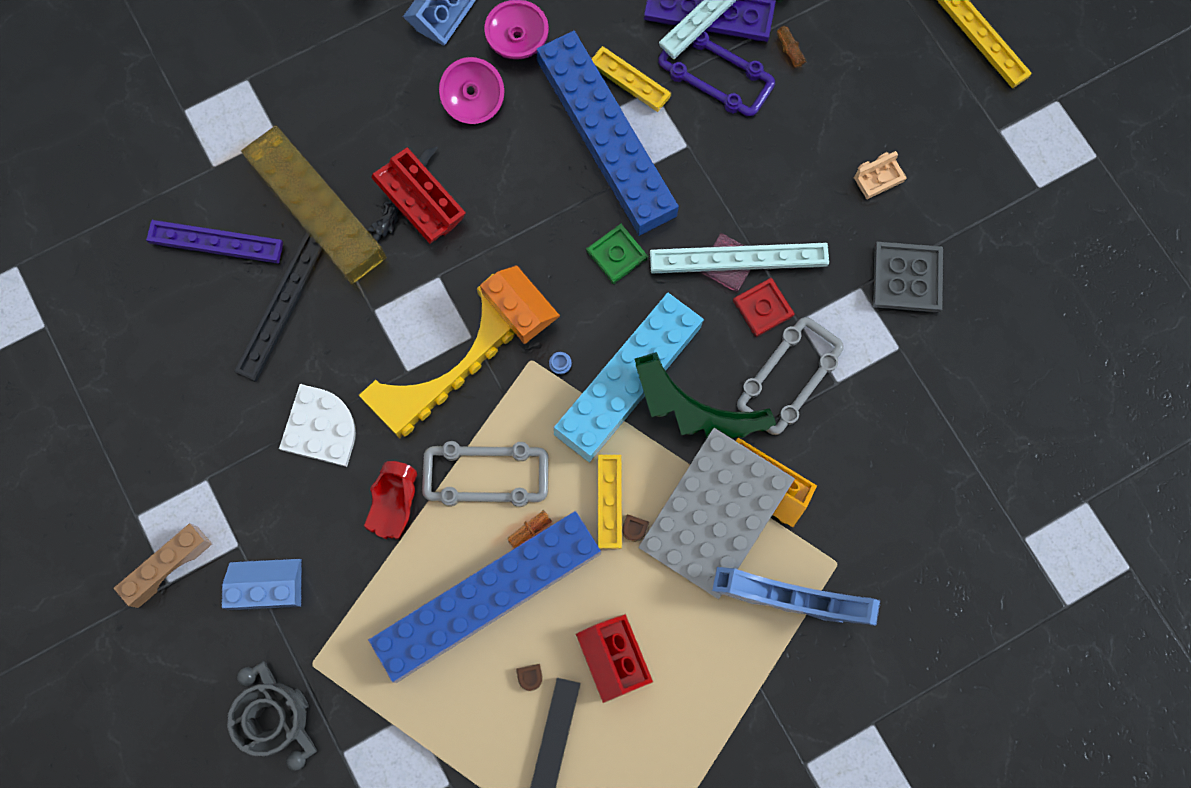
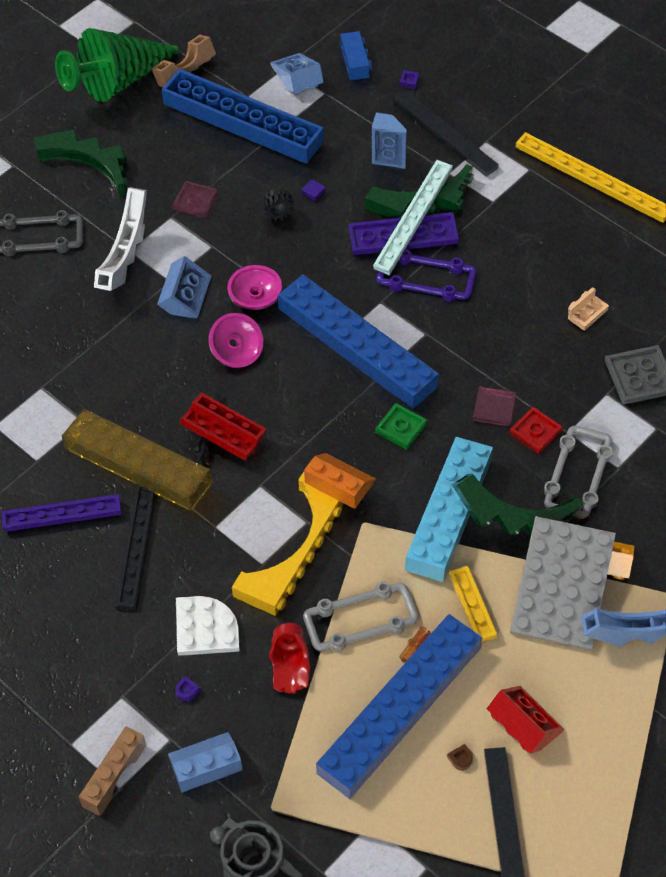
camera: 15 degrees left, 20 degrees down
(275, 494) = (187, 690): none -> dark purple tile
(560, 363) = (388, 518): medium blue plate -> none
(630, 79) = (362, 299): yellow plate -> none
(634, 528) = (501, 619): reddish brown tile -> none
(739, 258) = (501, 399): light aqua tile -> none
(791, 46) = (478, 241): clear orange axle -> none

